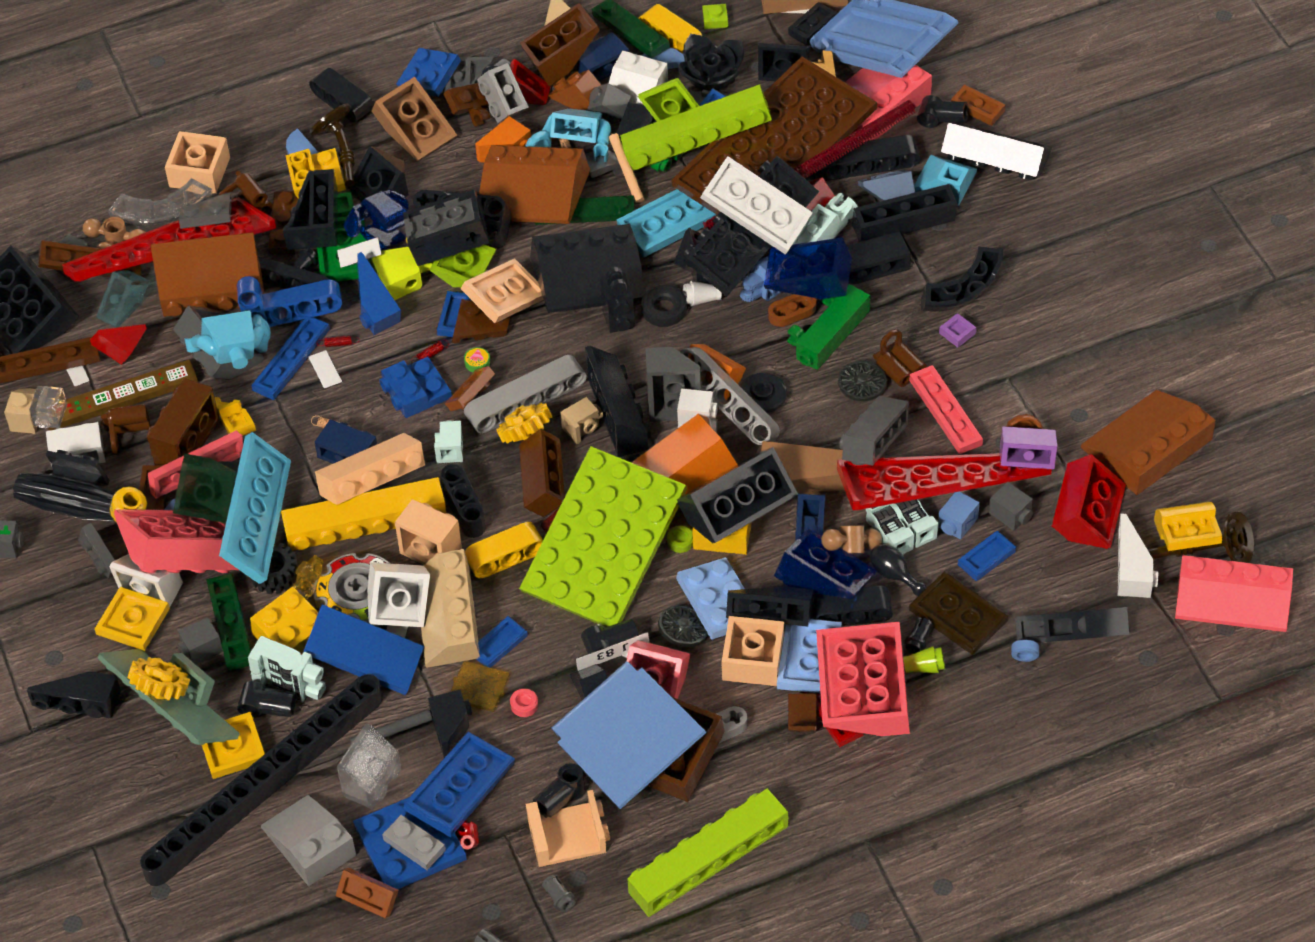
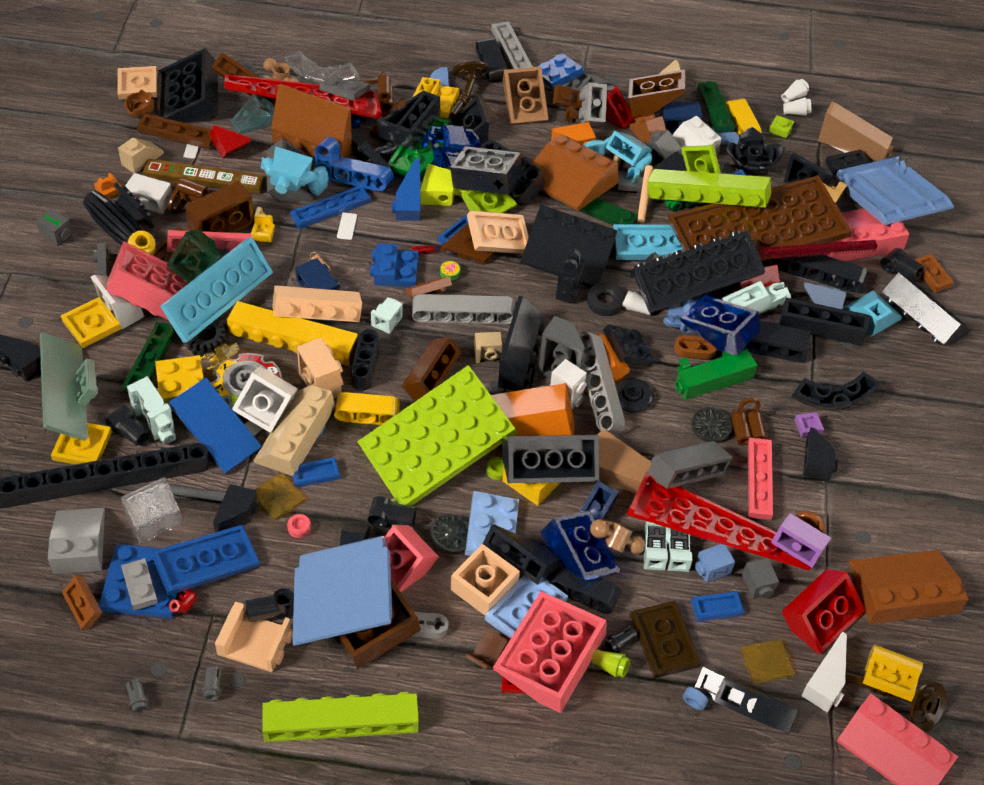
camera: 25 degrees right, 0 degrees up
(19, 462) = (106, 186): none -> orange tile
(48, 407) = (149, 159): clear brick -> none
(158, 678) = (59, 369): yellow gear -> none
(197, 158) = (366, 54): light nougat brick -> none
(199, 641) = (118, 360): dark grey brick -> none
(338, 341) = (368, 212): red piece -> none
(349, 254) = (426, 160): white sticker -> none
(354, 69) = (510, 45): none -> light grey plate
(524, 422) = (445, 326): yellow gear -> none
(609, 652) = (382, 522): white sticker -> none
(726, 342) = (629, 345): none -> black plate
(756, 205) = (708, 257): white plate -> none
(892, 565) = (637, 573): black piece -> none
(988, 357) = (819, 456): none -> black slope
(1066, 581) = (767, 661): none -> clear yellow piece

